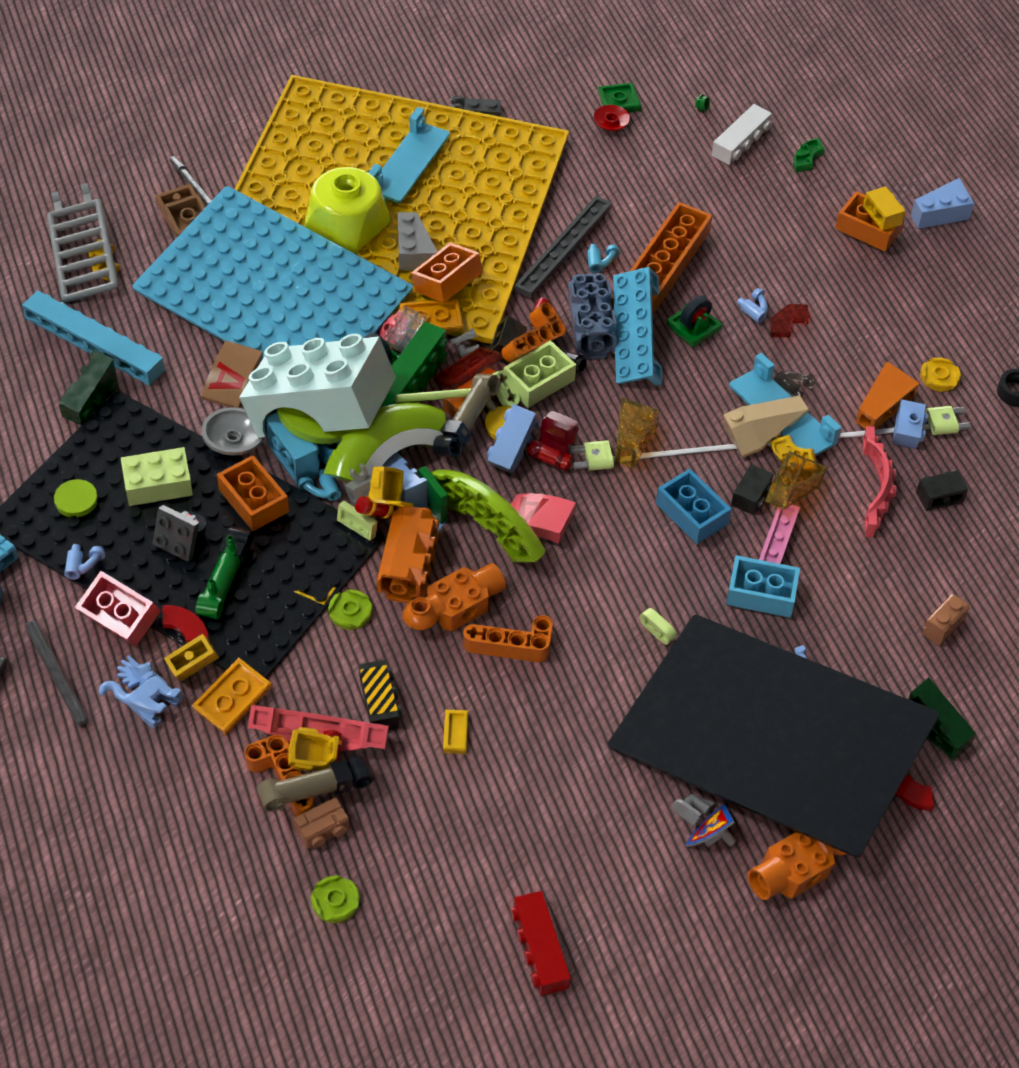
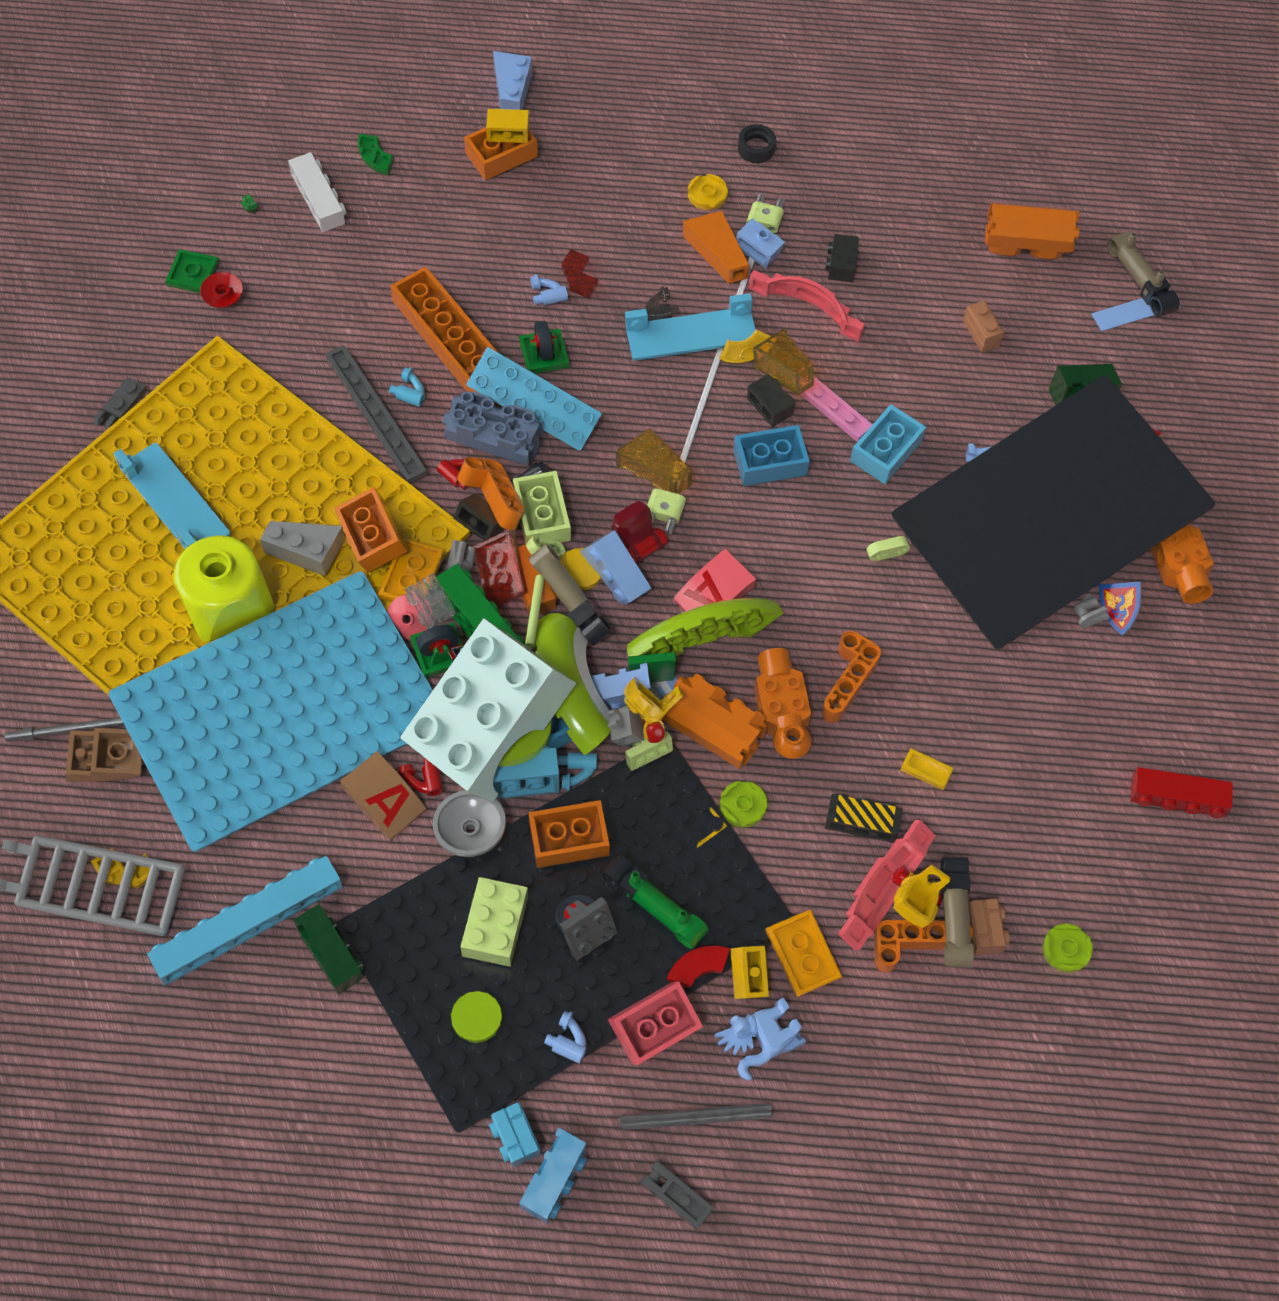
camera: 65 degrees left, 10 degrees up
(758, 423) = (703, 357): tan wedge -> none

